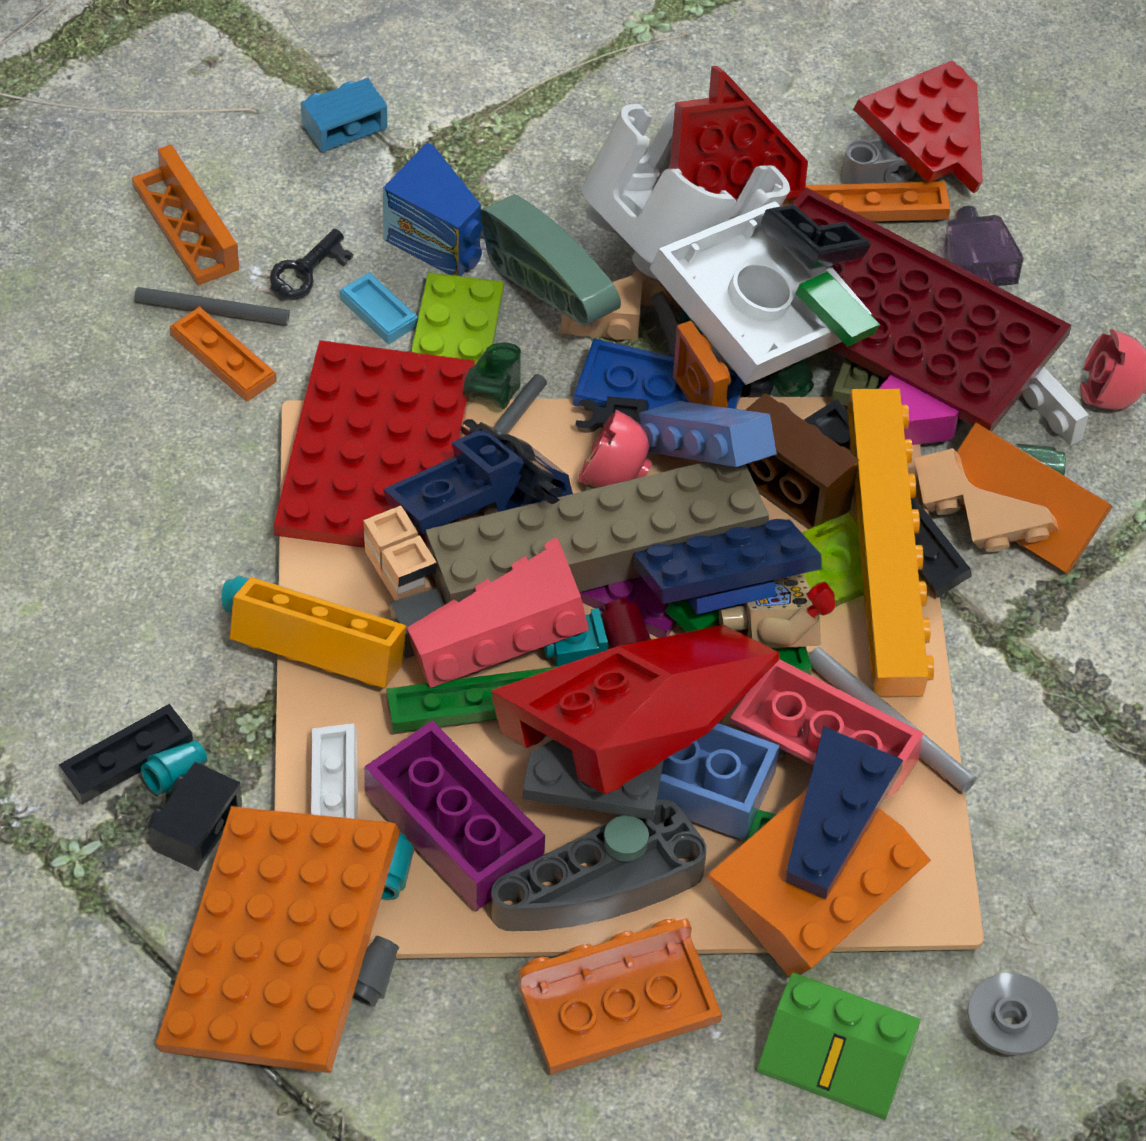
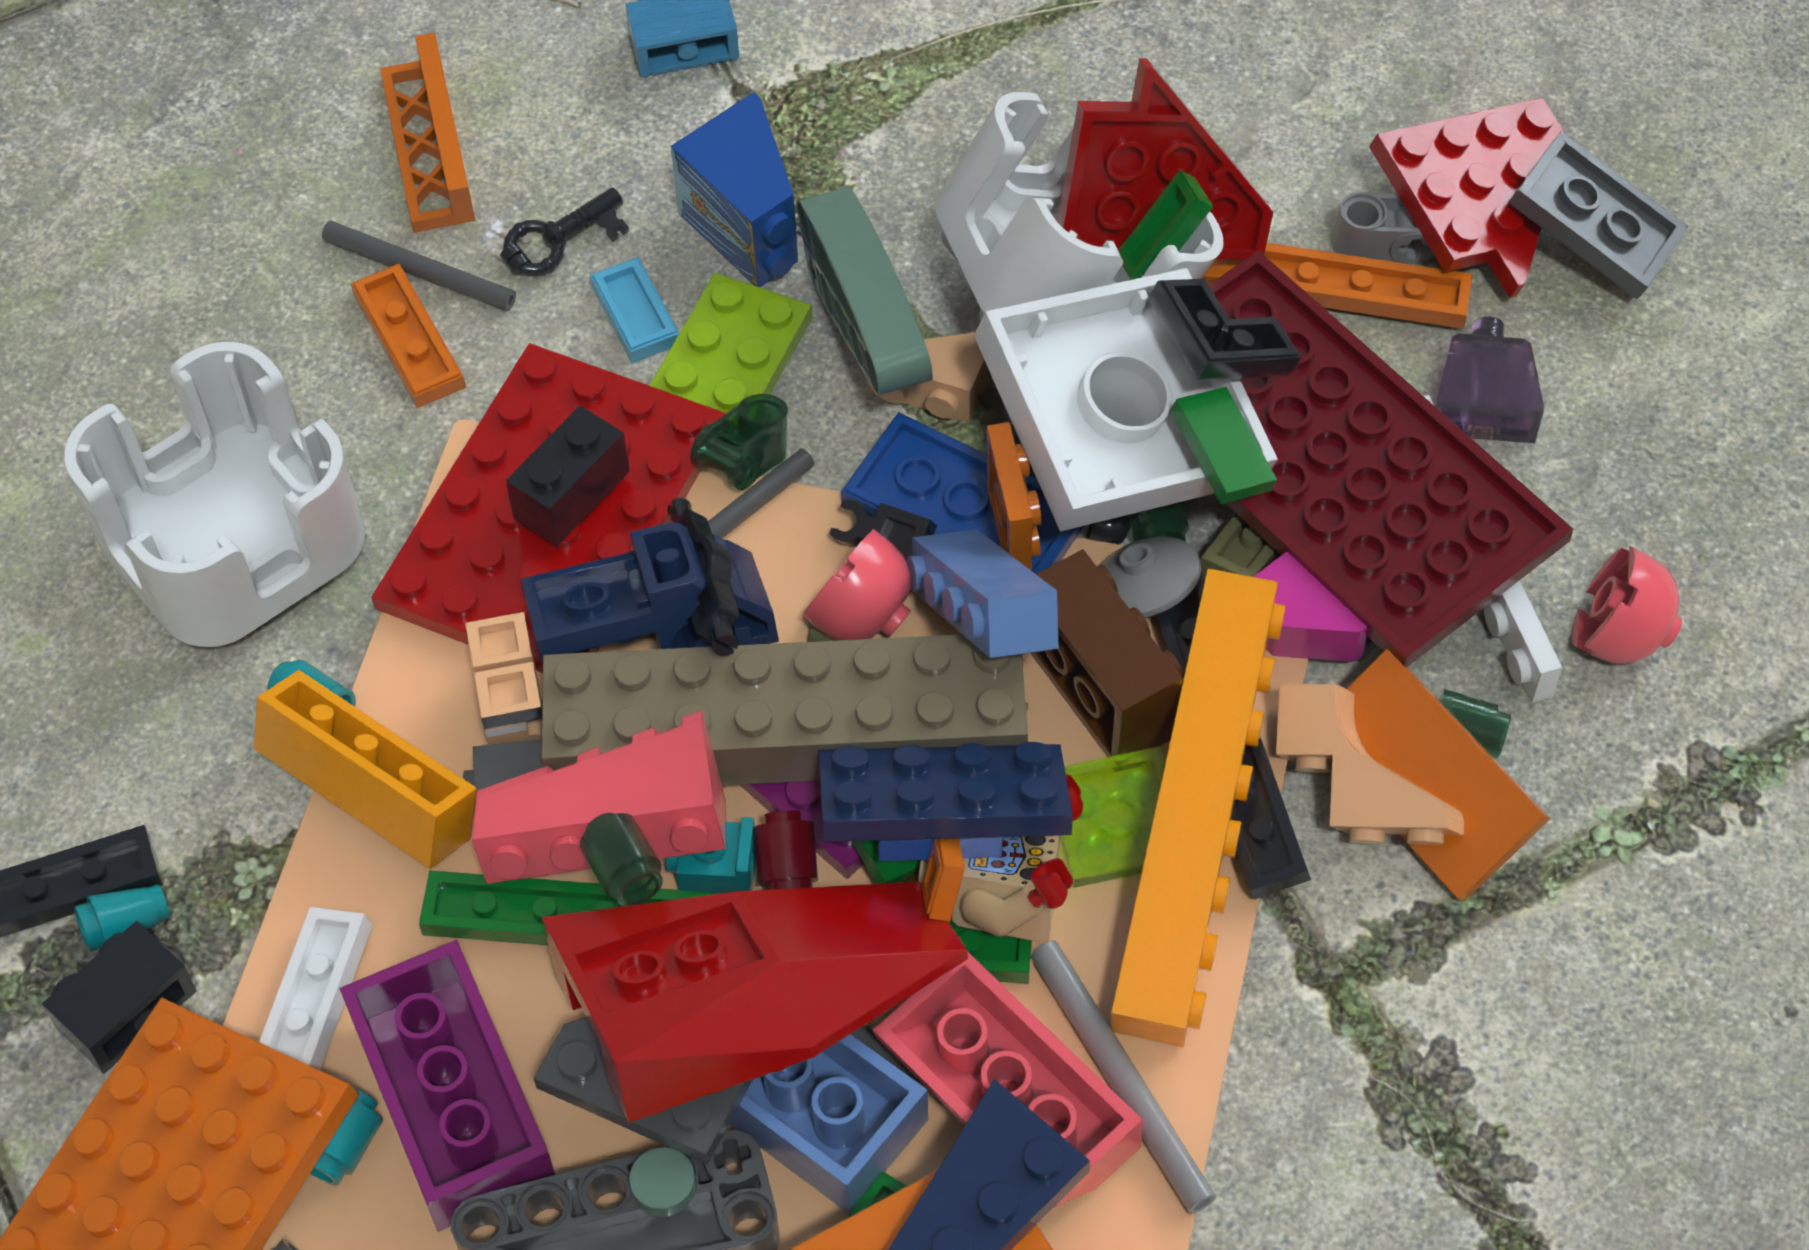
camera: 20 degrees right, 5 degrees up
(149, 485) = (226, 511): none -> white piece
(390, 416) = (568, 475): none -> black brick
(533, 641) = (622, 858): none -> clear green brick
(745, 613) = (943, 878): none -> orange tile
(748, 175) = (1166, 223): none -> green tile
(810, 402) = (1154, 573): none -> light grey dish
(1016, 128) = (1599, 215): none -> plate

